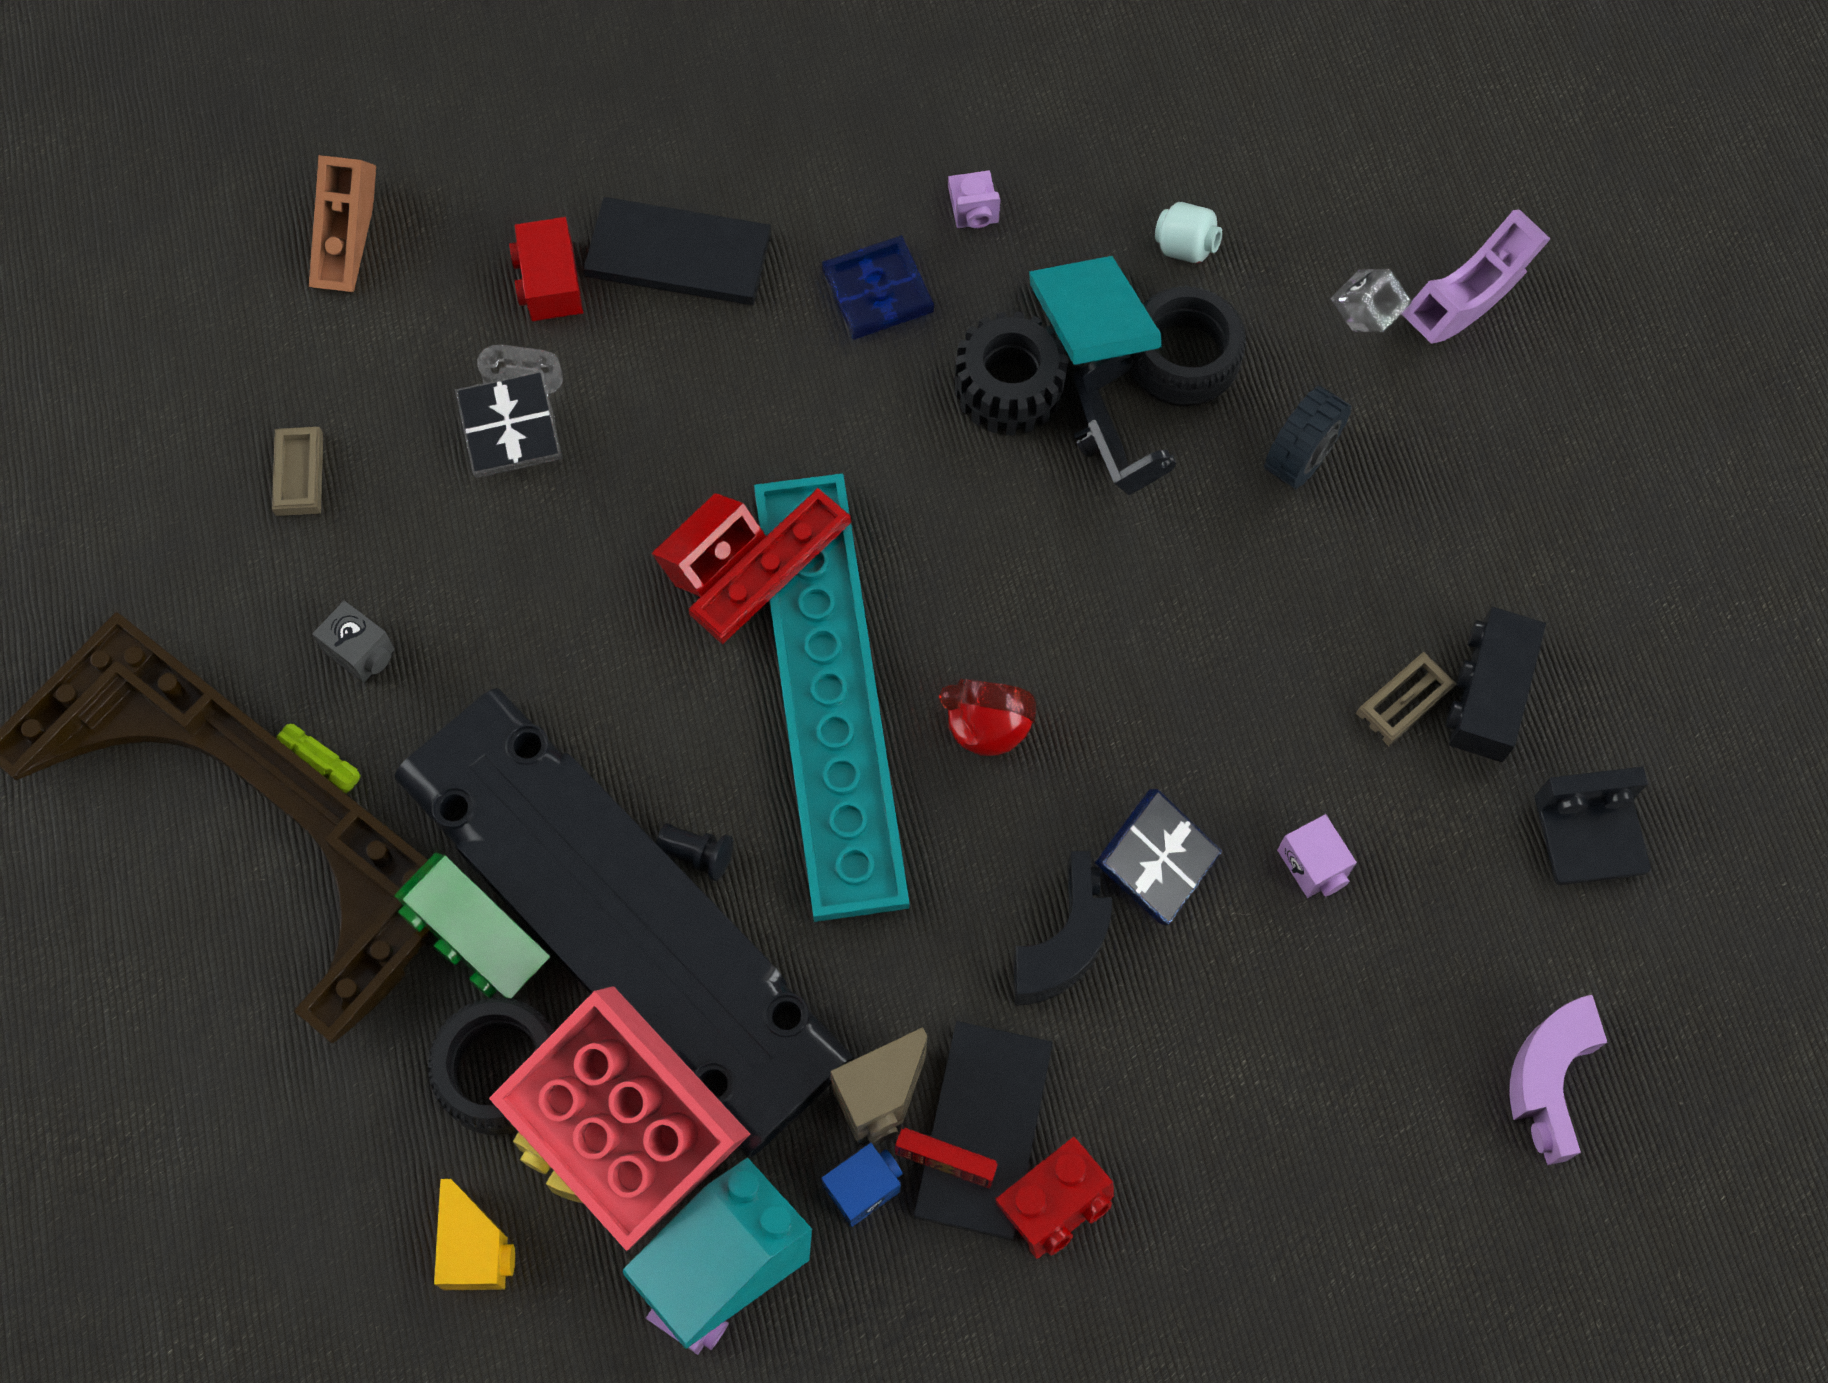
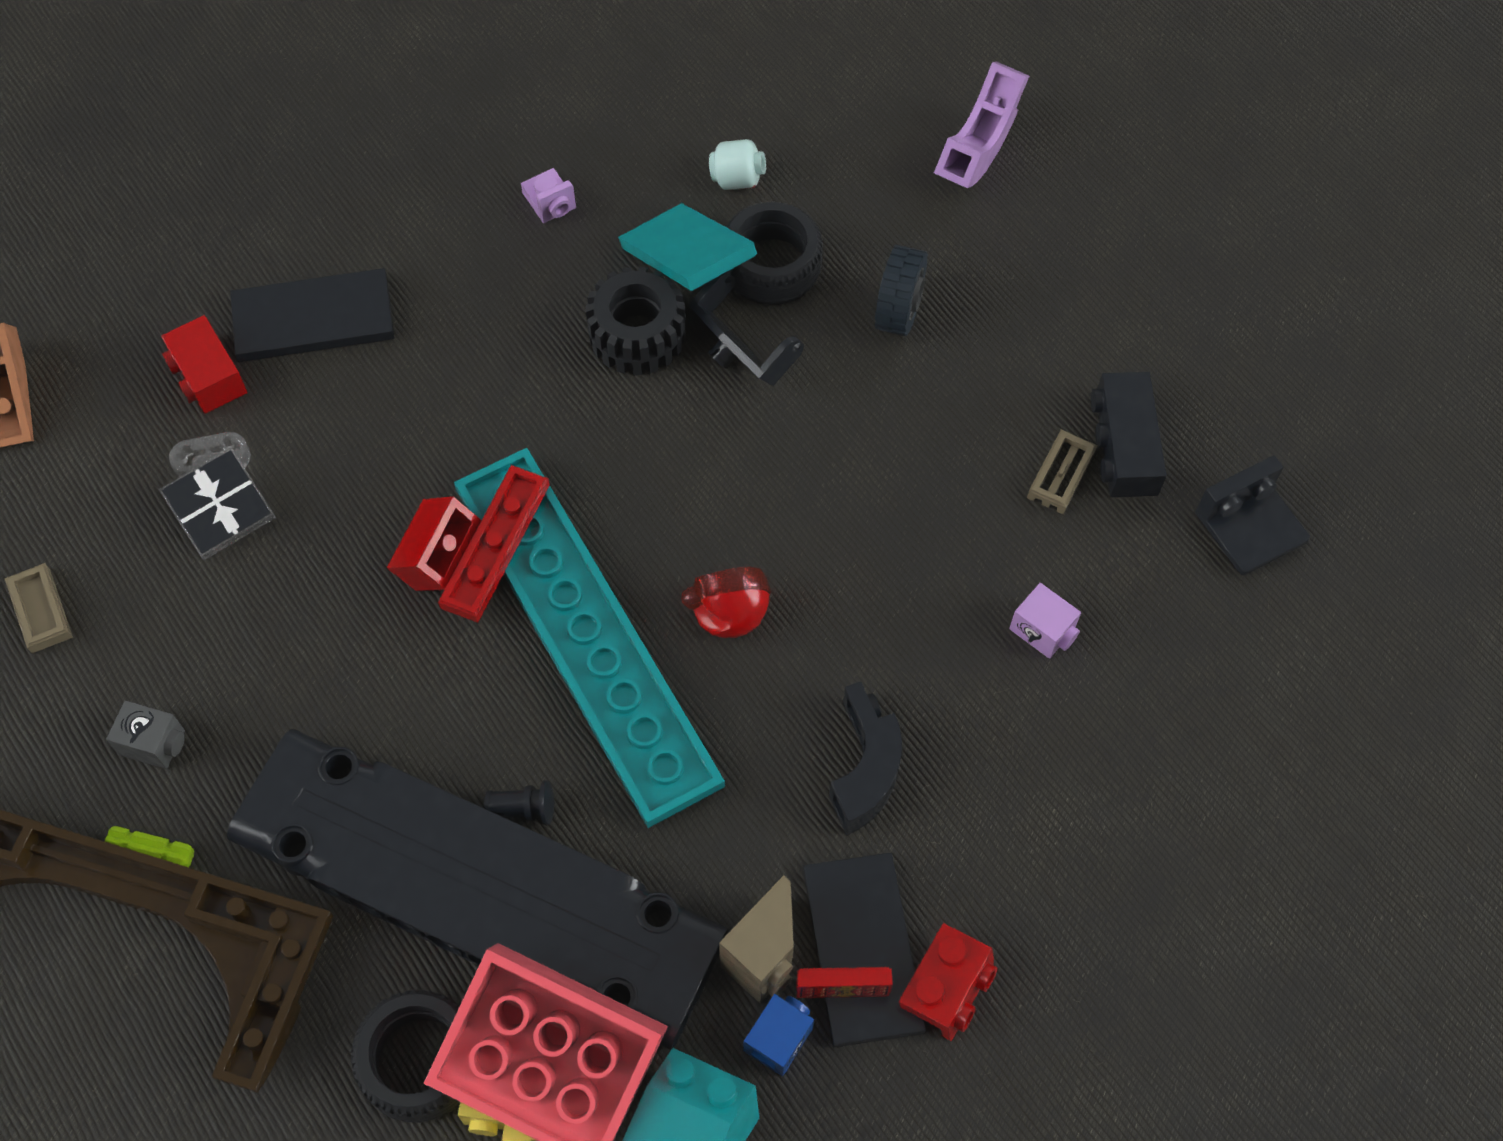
camera: 20 degrees left, 5 degrees down
(470, 928) = (347, 941): brick -> none
(877, 287) = (495, 290): clear blue tile -> none
(1158, 857) = (917, 667): tile -> none
(1371, 300) = (906, 169): clear brick -> none
(1541, 1070) = (1296, 731): lavender arch -> none

